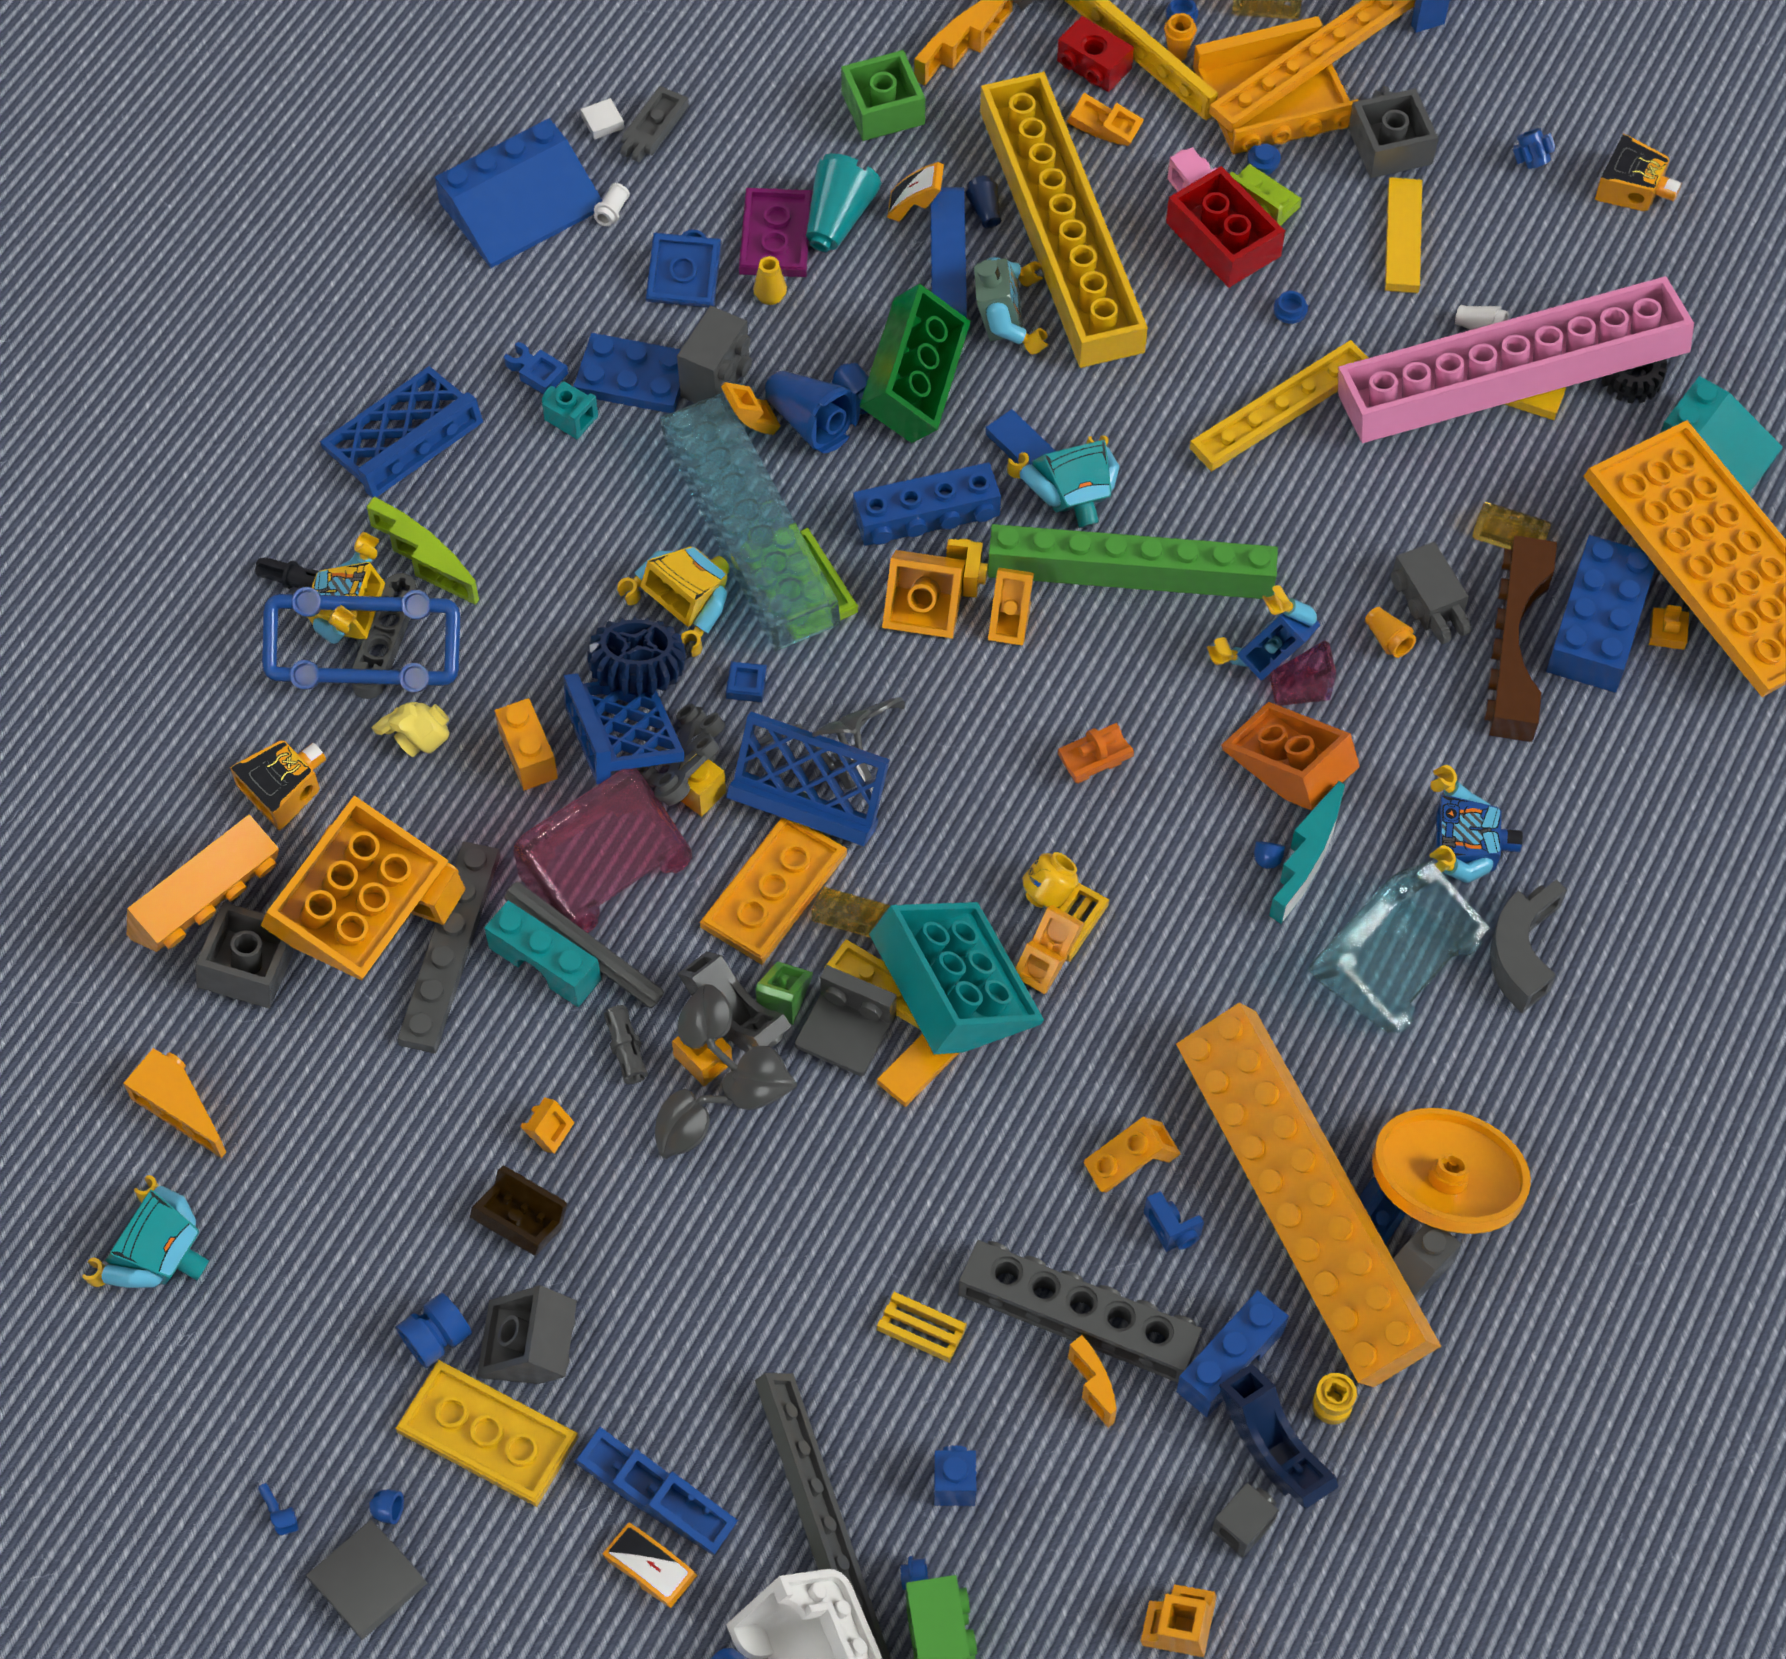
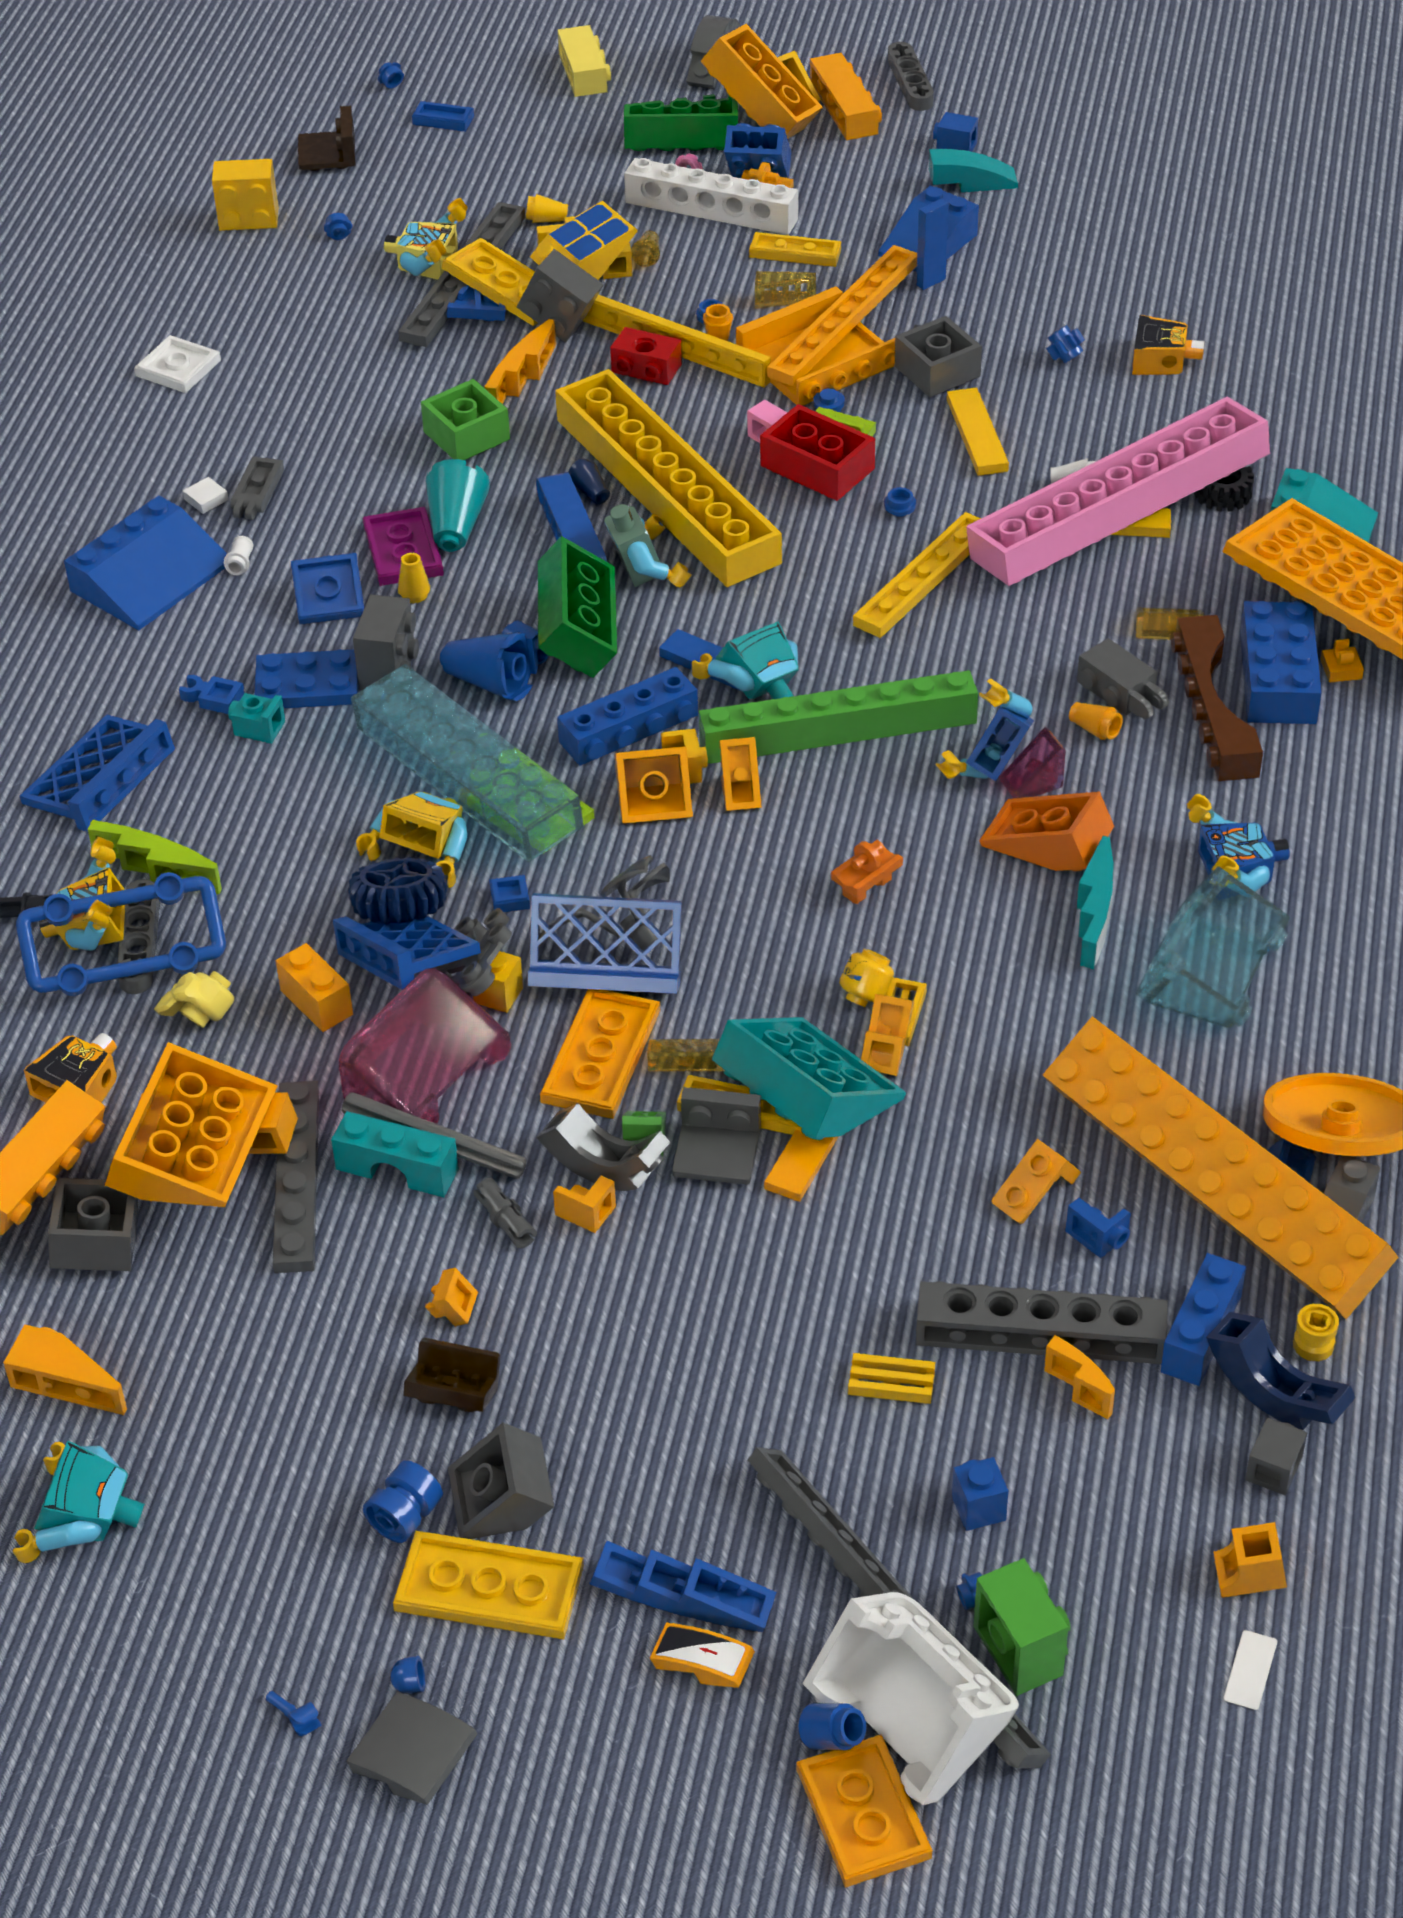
camera: 15 degrees left, 15 degrees down
(750, 1084) = (660, 1180): dark grey plant -> none
(751, 411) = (434, 673): light orange slope -> none
(915, 189) = (527, 478): slope -> none
(1112, 125) = (685, 405): light orange slope -> none
(1268, 854) = (1060, 912): blue hinge -> none
(1513, 962) = (1318, 938): dark grey arch -> none

